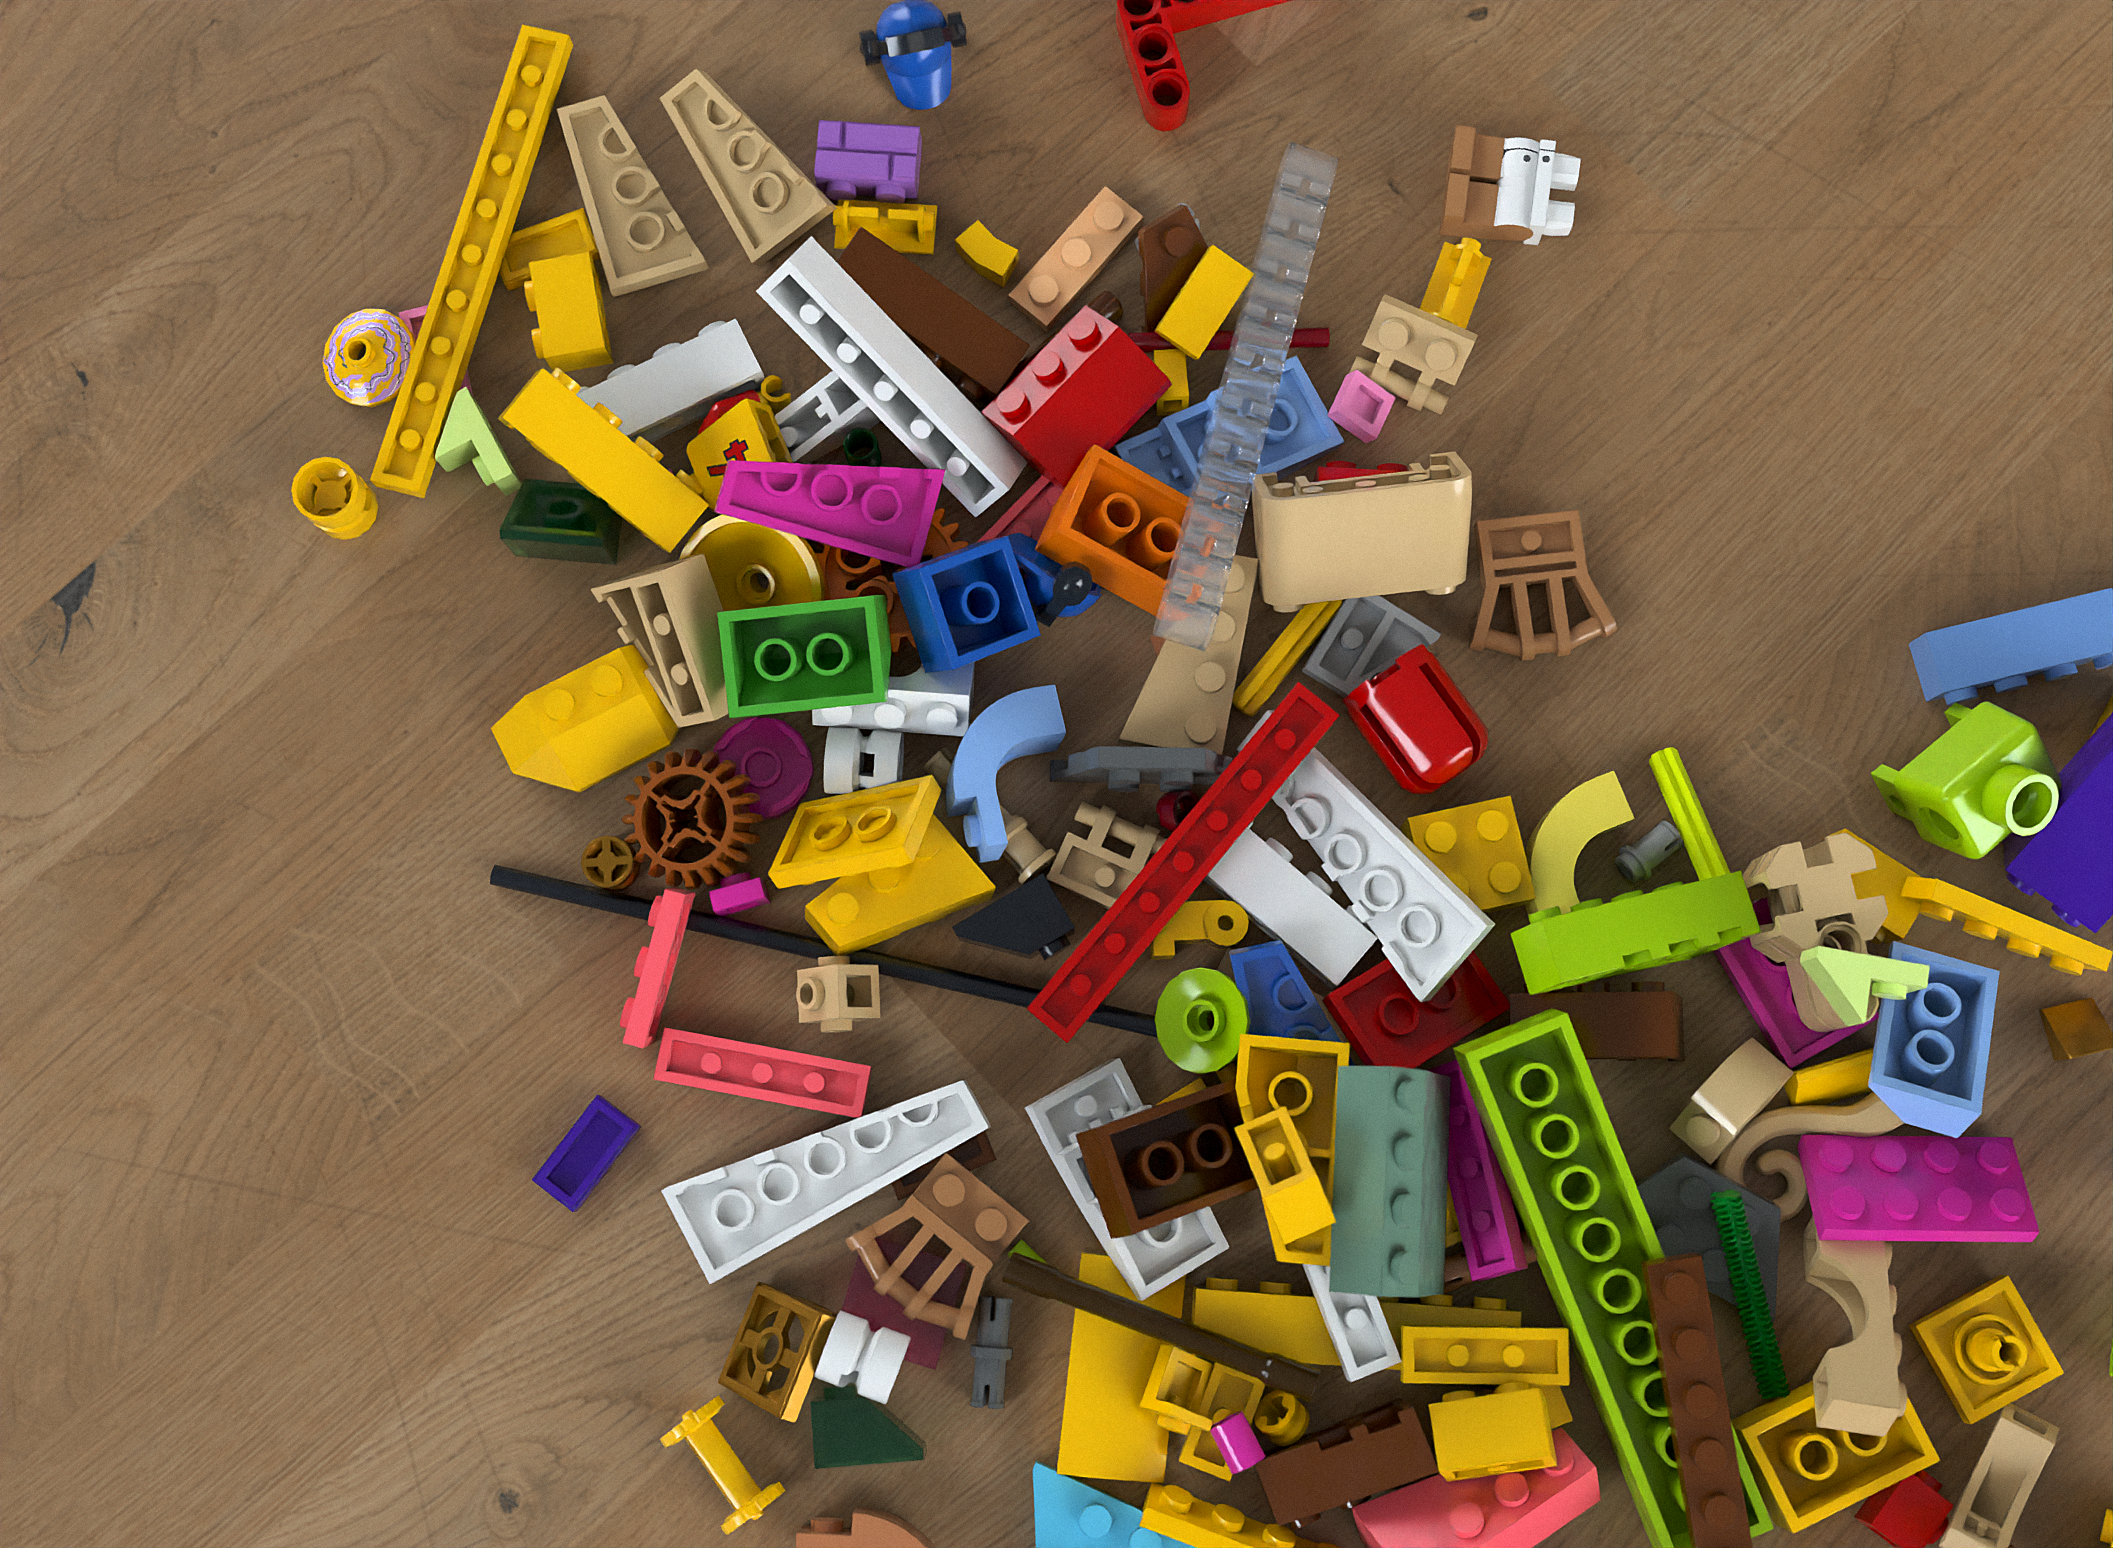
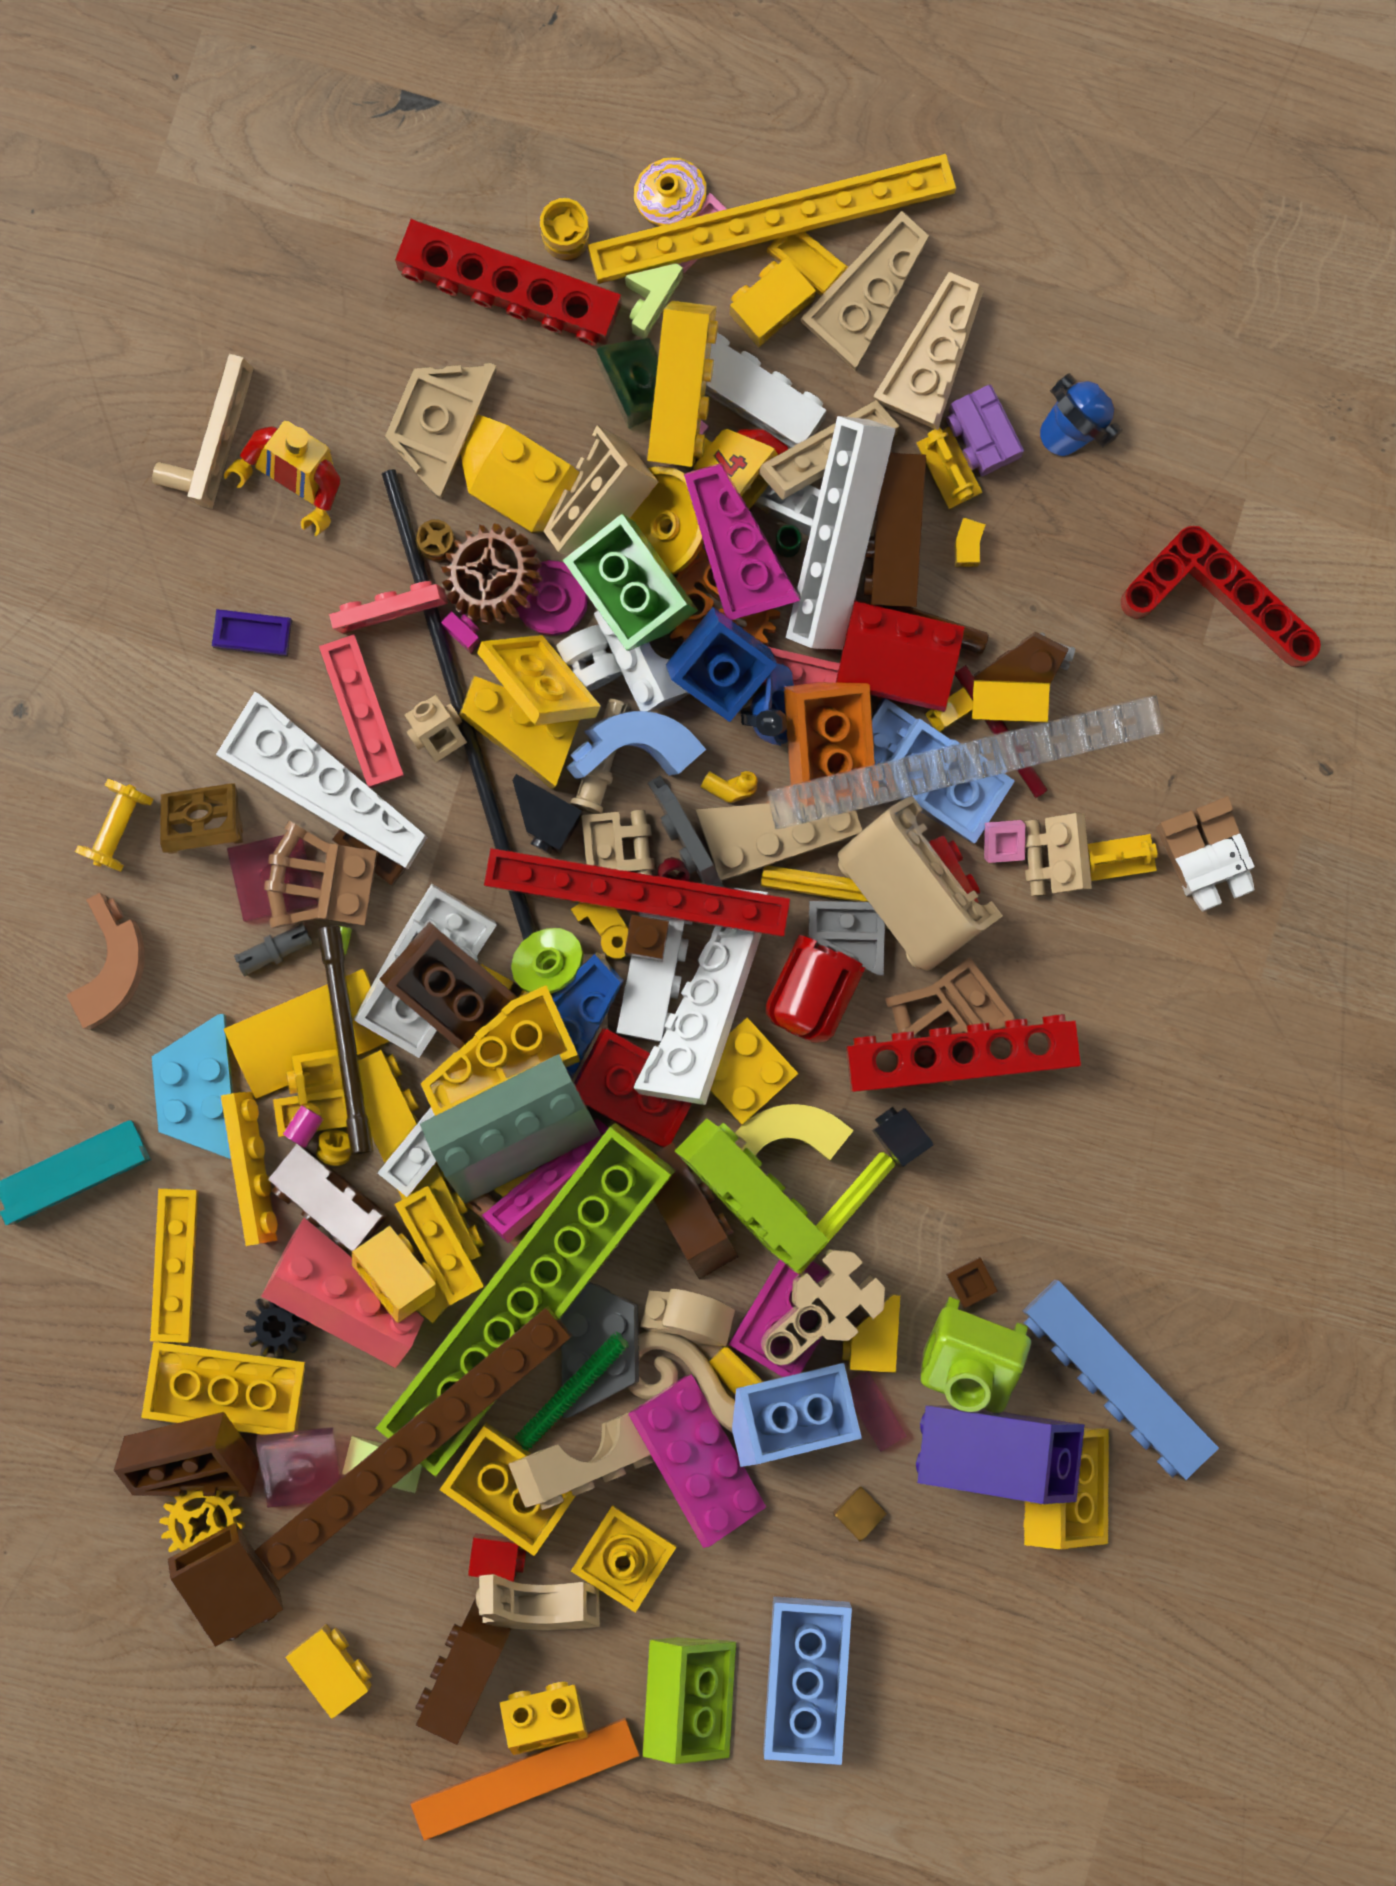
camera: 55 degrees right, 5 degrees up
(246, 668) = (424, 241): none -> red brick
(366, 1101) = (205, 480): none -> tan piece
(413, 976) = (296, 463): none -> torso
(467, 779) = (437, 419): none -> tan wing
(782, 365) = (808, 459): none -> tan plate
(859, 1431) = (181, 896): clear green slope -> none
(862, 1357) = (224, 871): white wheel -> none
(1076, 259) = (999, 602): light nougat plate -> none
(1117, 684) = (732, 789): none -> yellow arm
(1247, 880) = (646, 938): none -> reddish brown brick
(1285, 1175) = (472, 1057): yellow slope -> none
(1639, 859) = (817, 1183): light grey pin -> none
(1653, 718) = (901, 1136): none -> black slope
(1654, 477) = (1060, 1054): none -> red brick
(1847, 979) = (791, 1330): yellowish green slope -> none
(1866, 738) = (971, 1282): none -> reddish brown plate
(1952, 941) = (875, 1411): none -> clear pink piece
(1988, 919) = (890, 1413): yellow plate -> none

